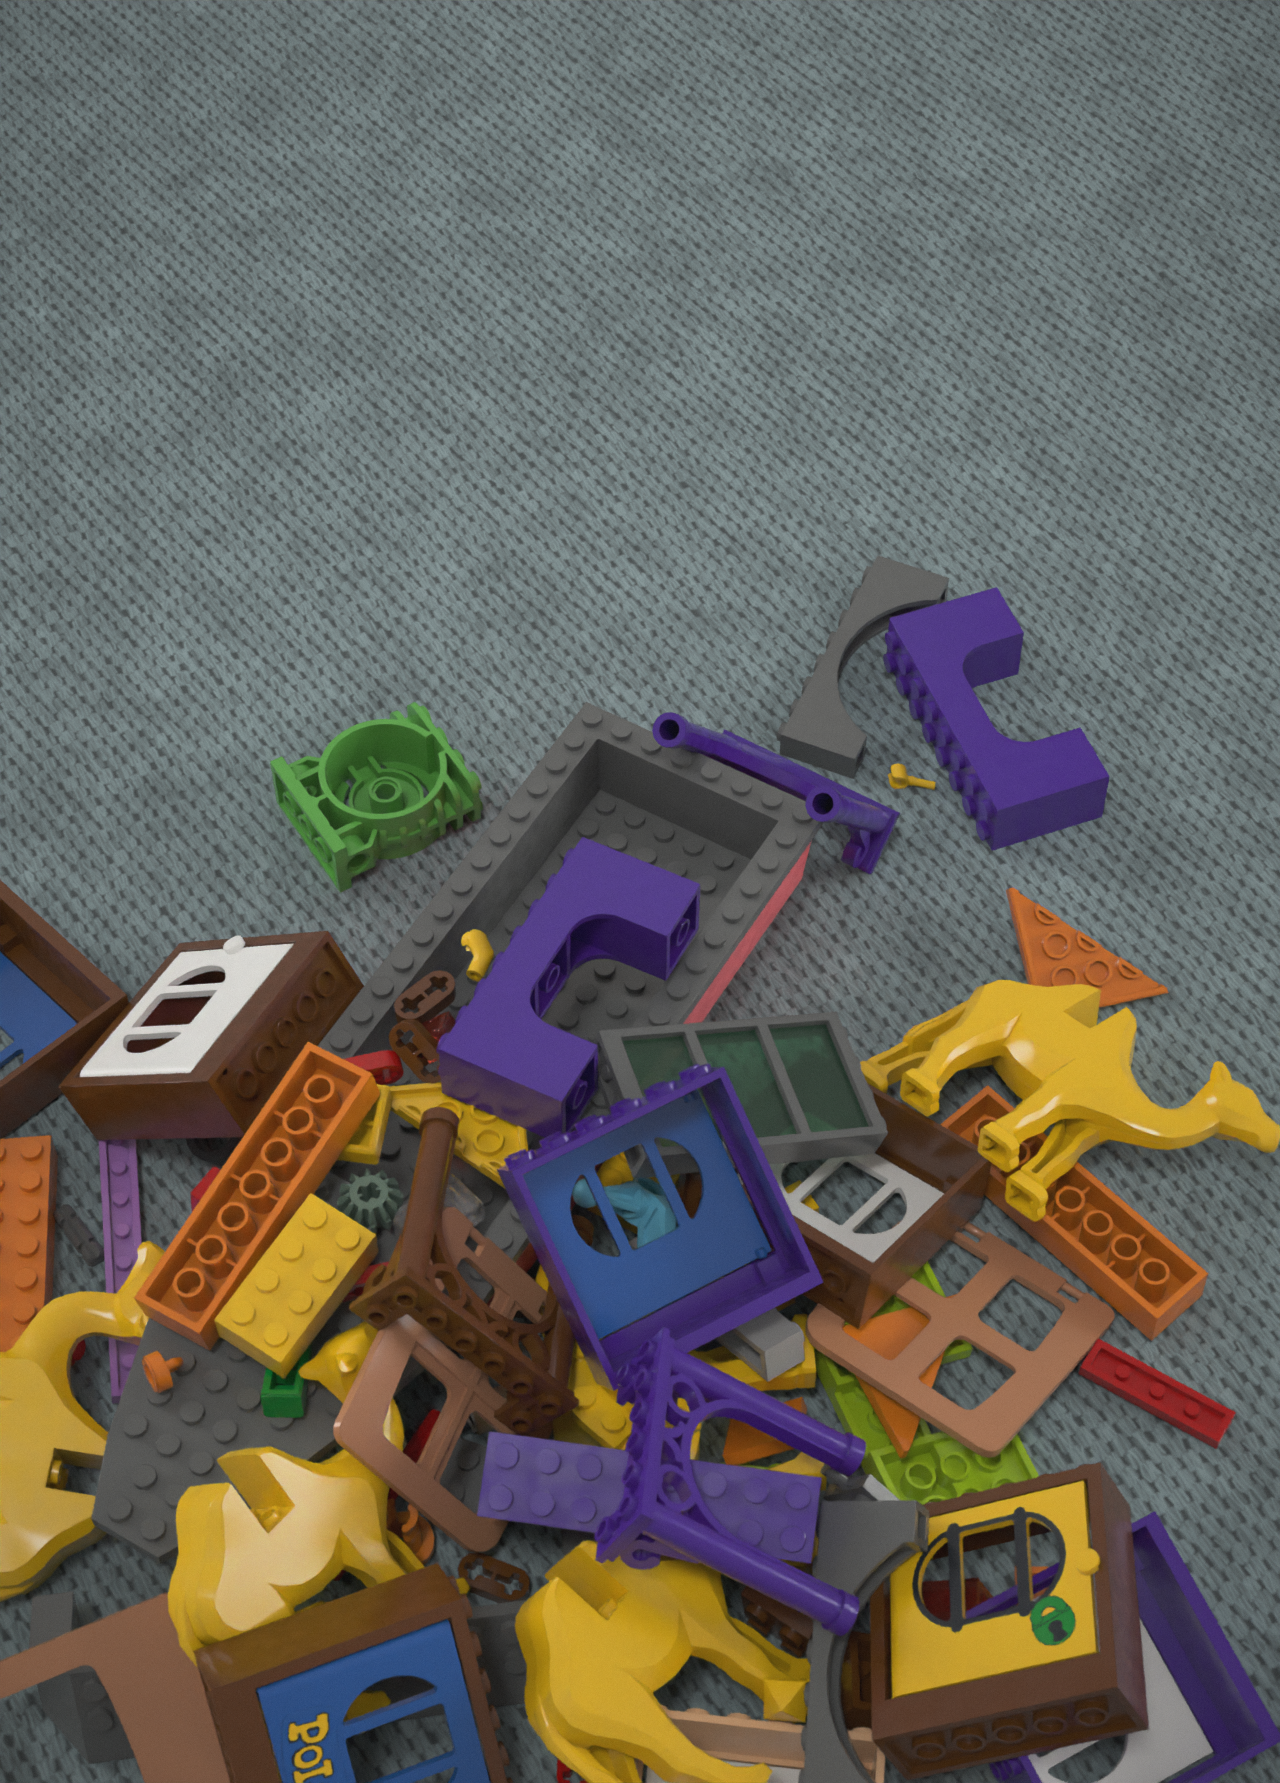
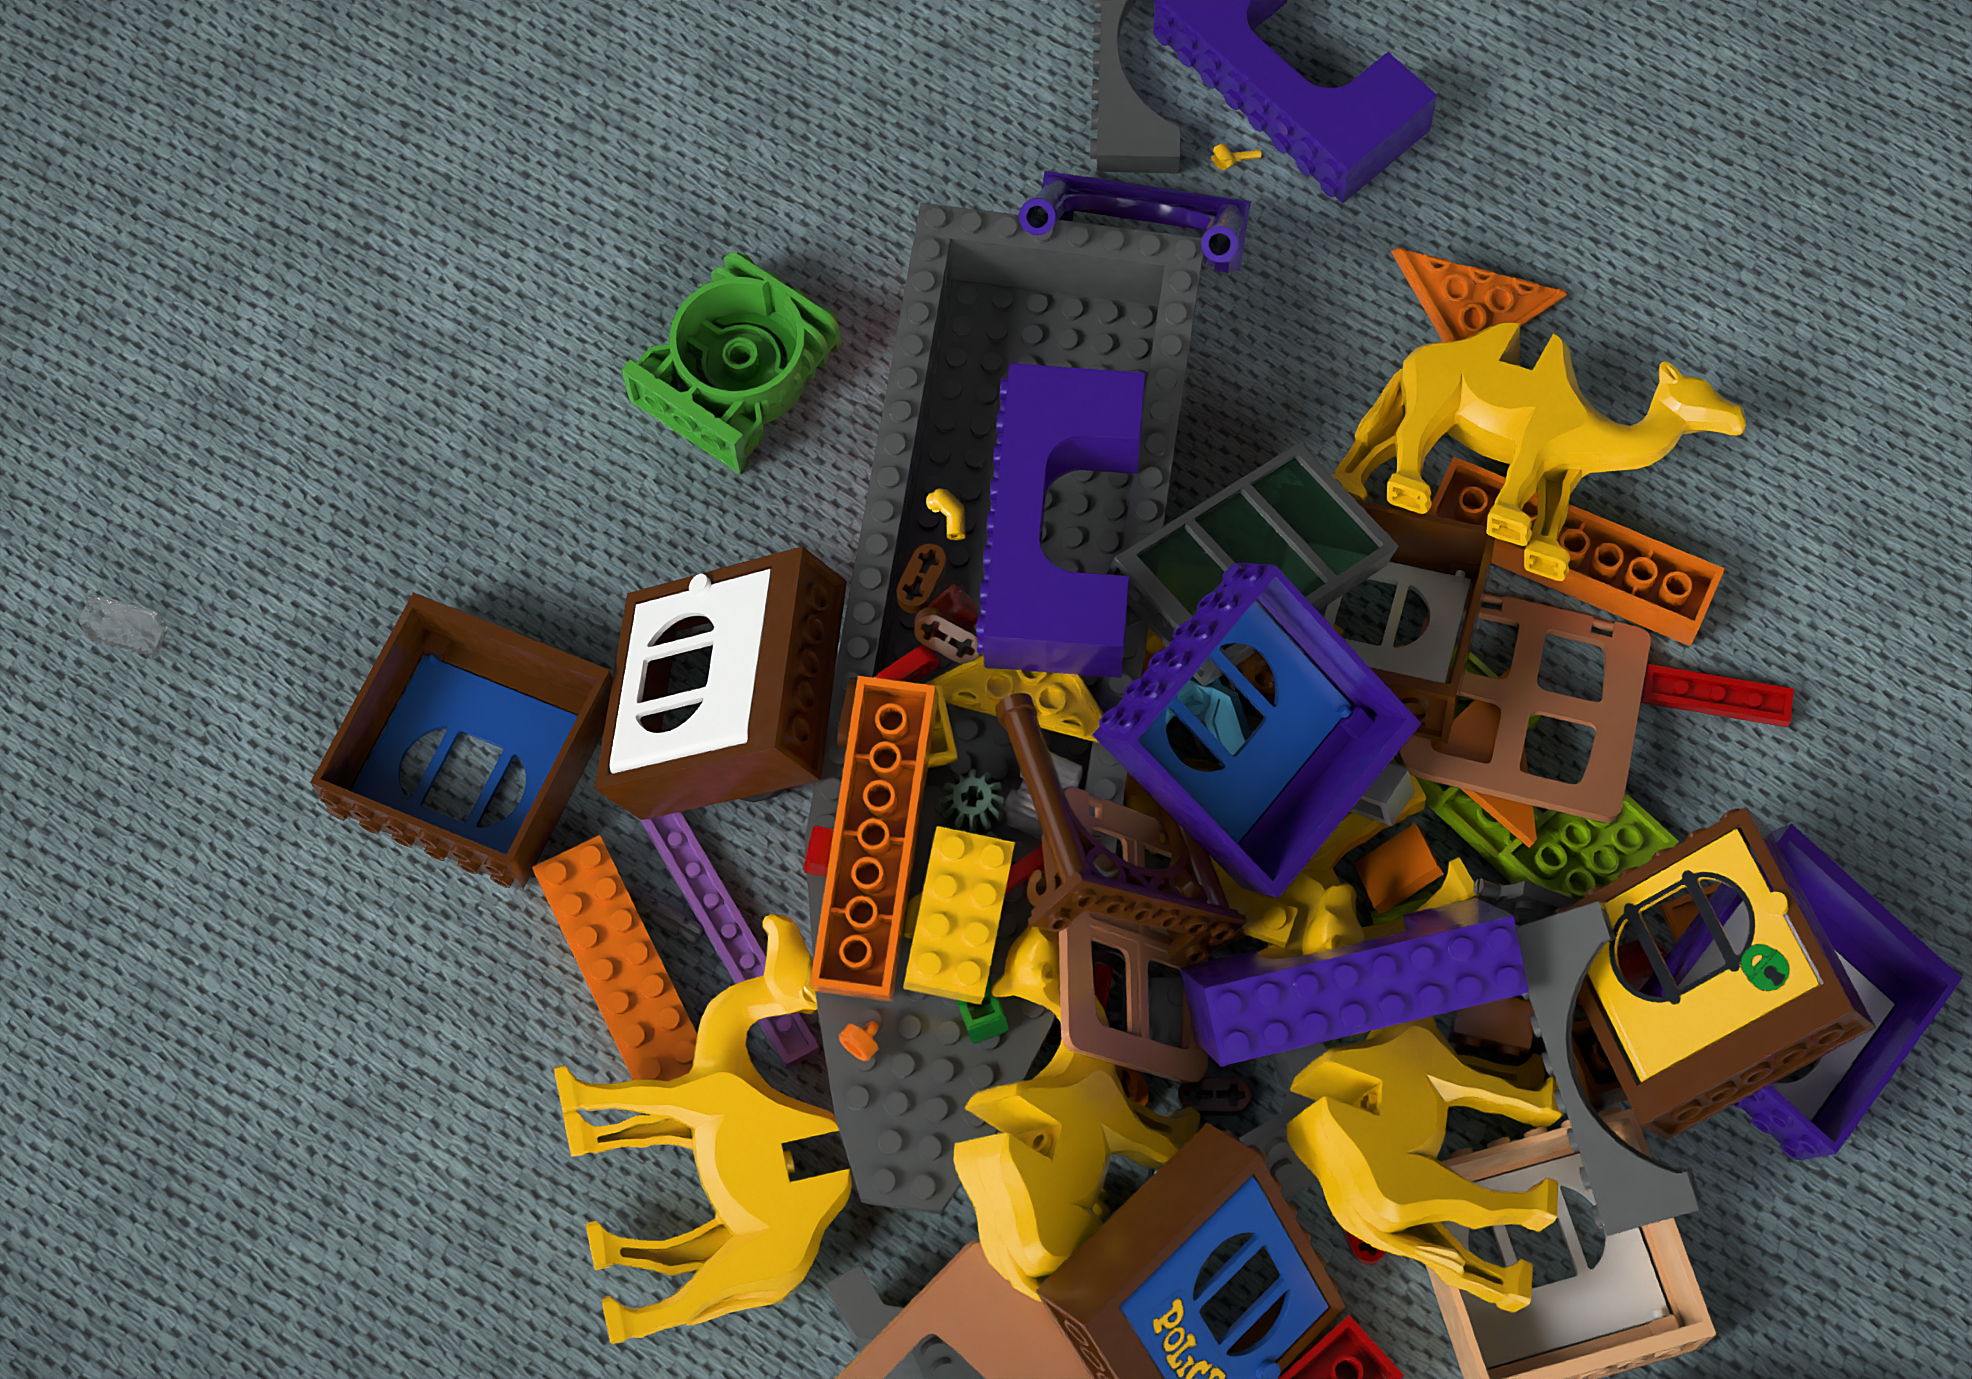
camera: 20 degrees left, 15 degrees up
(655, 1526) = (1371, 954): dark purple arch -> none
(784, 1699) = (1538, 1113): yellow slope -> none

